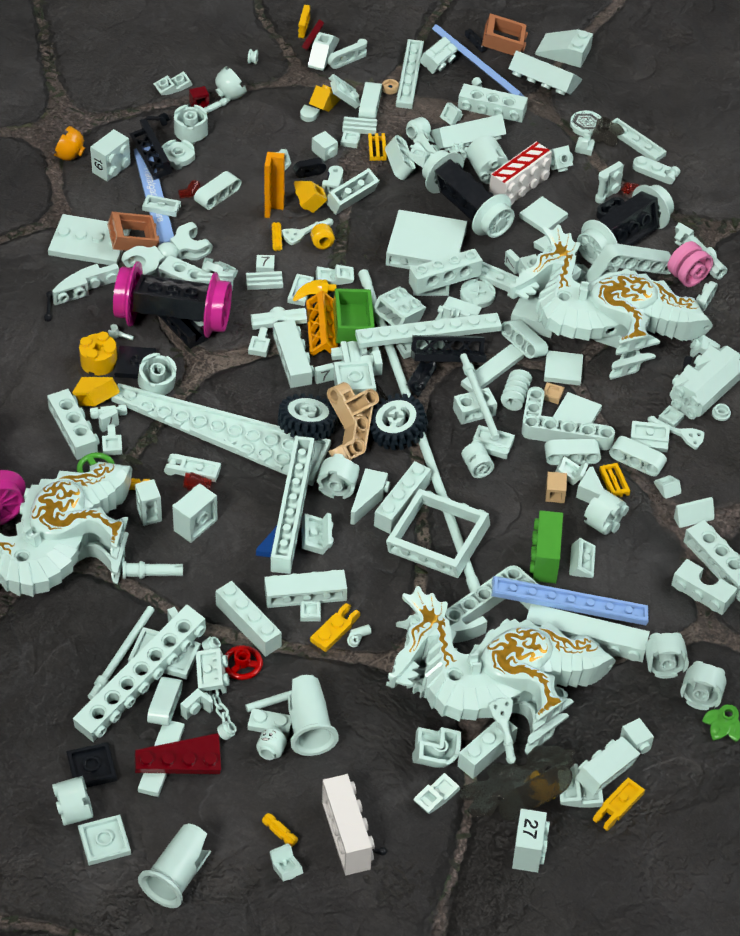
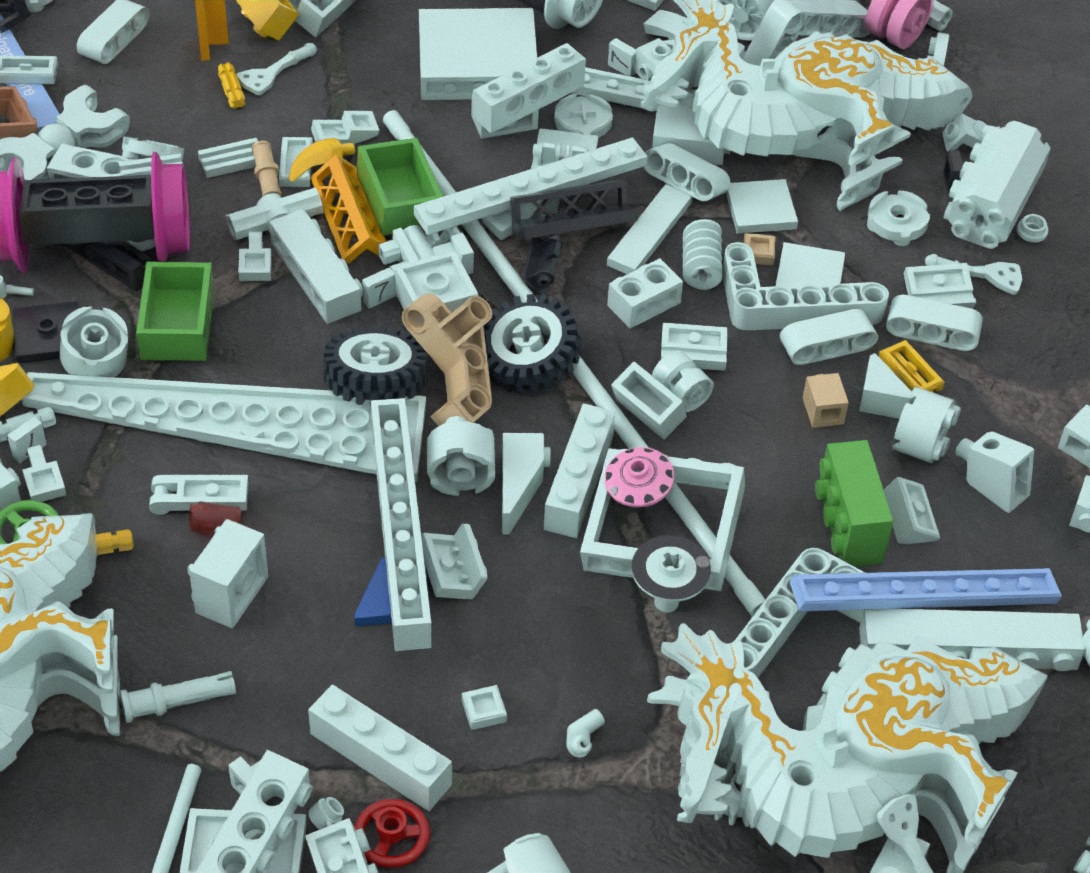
camera: 15 degrees left, 0 degrees up
(148, 502) = (139, 571): light aqua brick -> none
(191, 189) = (68, 39): clear red arm -> none
(206, 364) = (175, 311): none -> bright green piece
(265, 263) = (224, 130): light aqua tile -> none
(281, 291) = (265, 168): none -> tan pin
(313, 586) = (463, 666): light aqua brick -> none
(322, 236) = (307, 71): yellow head -> none
(334, 628) = (536, 731): yellow hinge -> none
(399, 307) = (470, 158): light aqua brick -> none
(429, 560) = (670, 570): none -> piece
(430, 513) = (642, 487): none -> bright pink dish
(453, 467) = (649, 400): none -> light aqua brick
(469, 371) = (621, 237): light aqua bar -> none
(469, 631) = (781, 676): light aqua slope -> none
(573, 471) = (850, 369): light aqua bracket -> none
(639, 397) = (900, 230): none -> light aqua plate
(639, 545) = (998, 468): none -> light aqua torso
(668, 486) = (999, 362): light aqua slope -> none
(671, 416) = (958, 248): light aqua tile -> none
(694, 512) = (1059, 396): light aqua slope -> none

